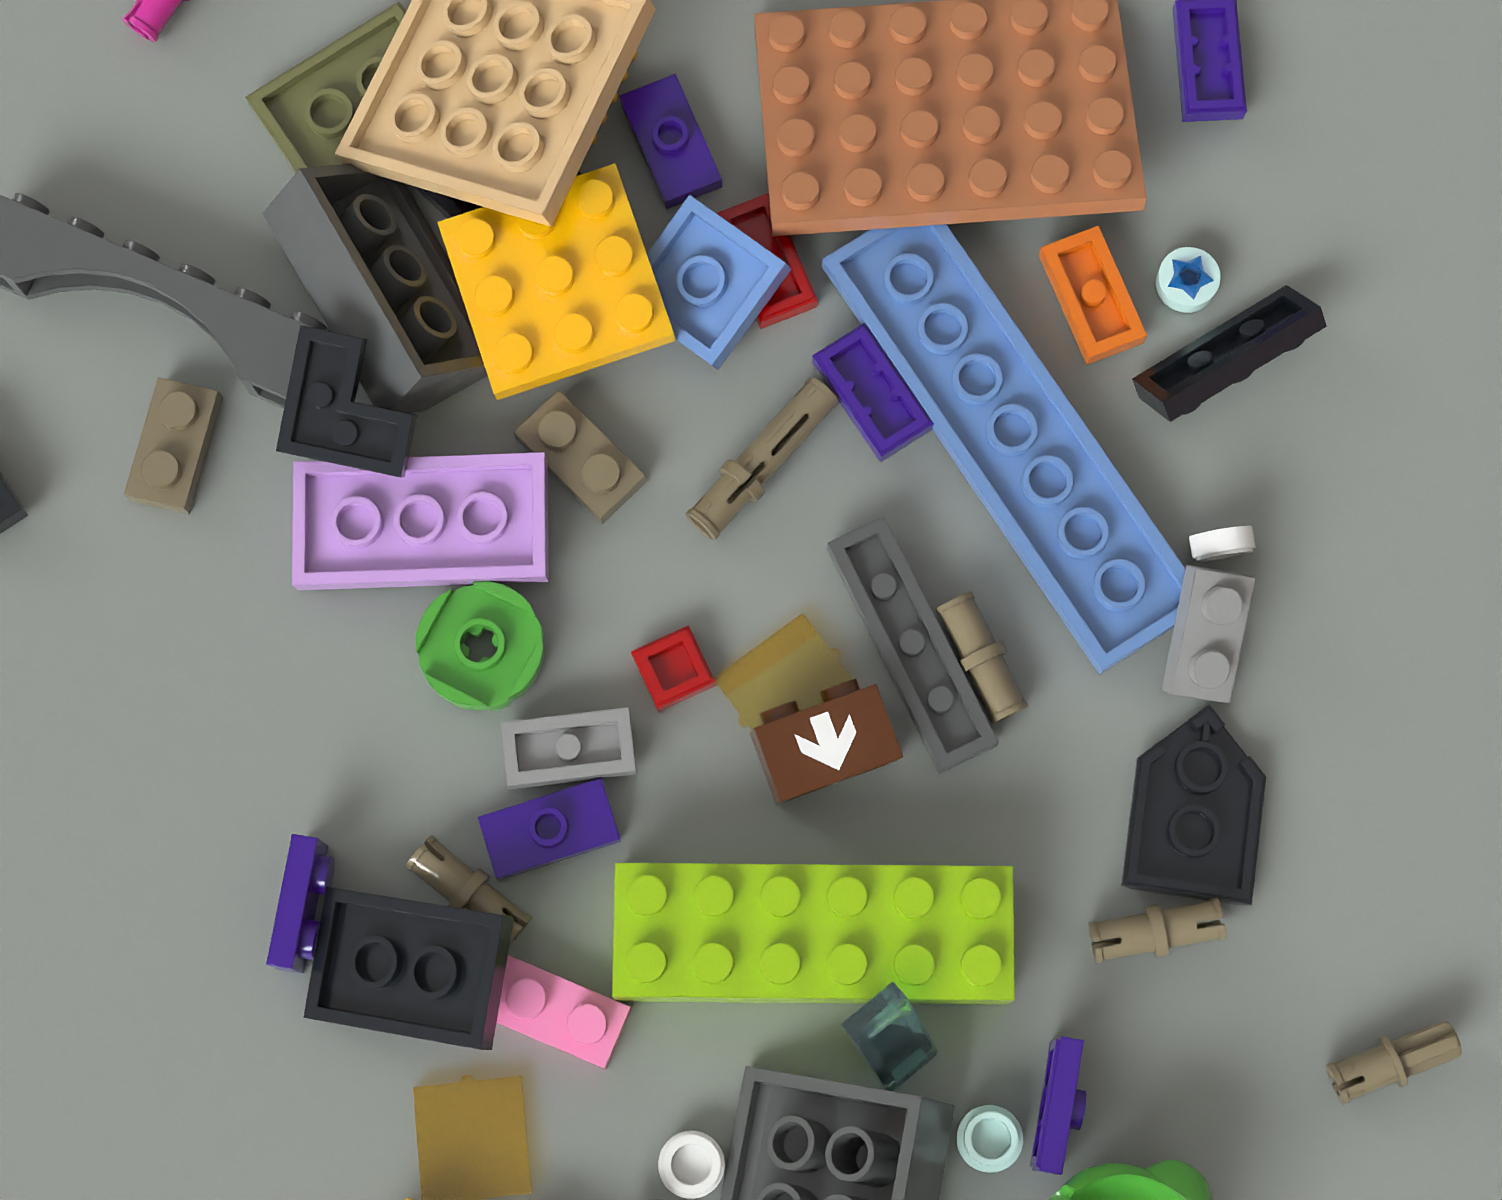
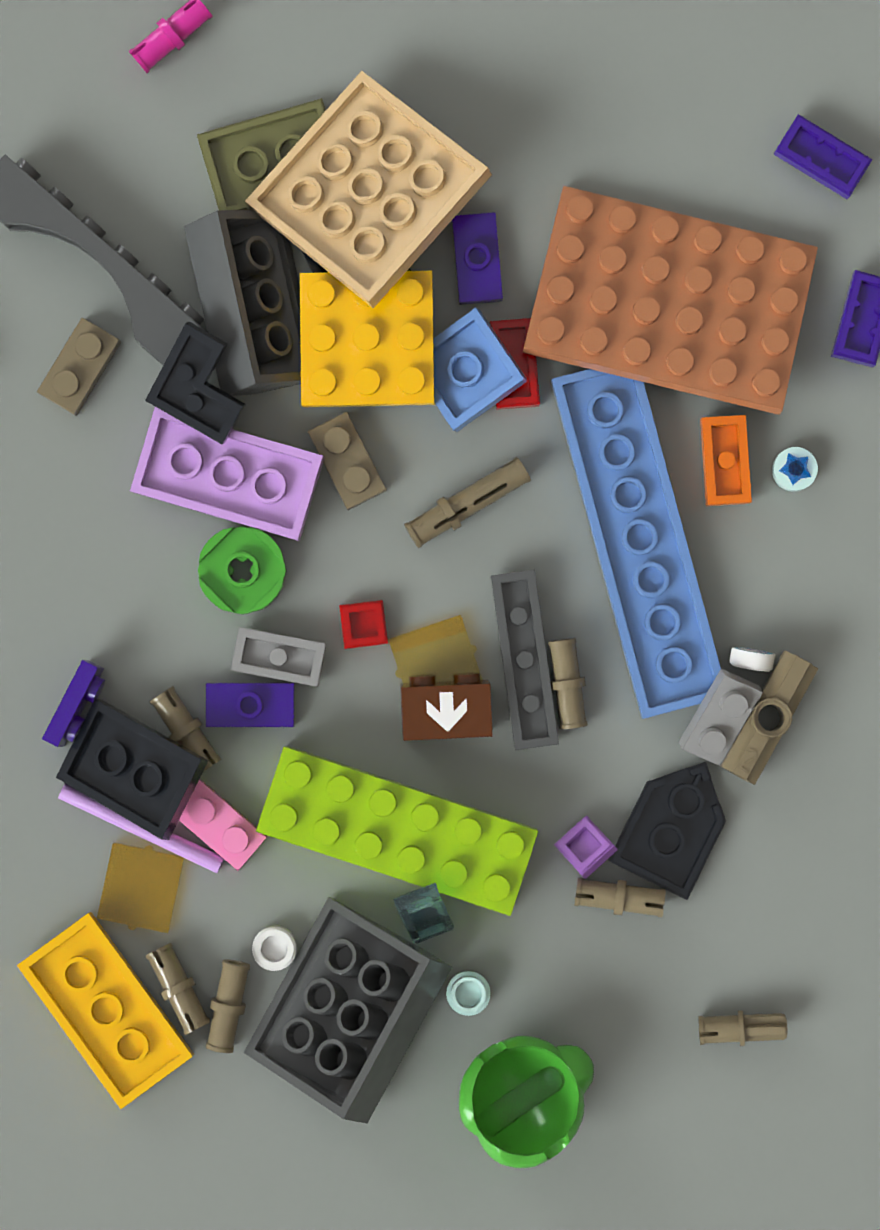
camera: 15 degrees right, 10 degrees up
(398, 1047) = (175, 844): none -> lavender bar
(872, 392) = (555, 480): dark purple plate -> none
(1060, 1105) = (519, 988): dark purple plate -> none
(1084, 875) = (585, 847): none -> medium lavender tile
(1229, 353) = (803, 530): black plate -> none
(1267, 652) = (784, 692): none -> dark tan piece

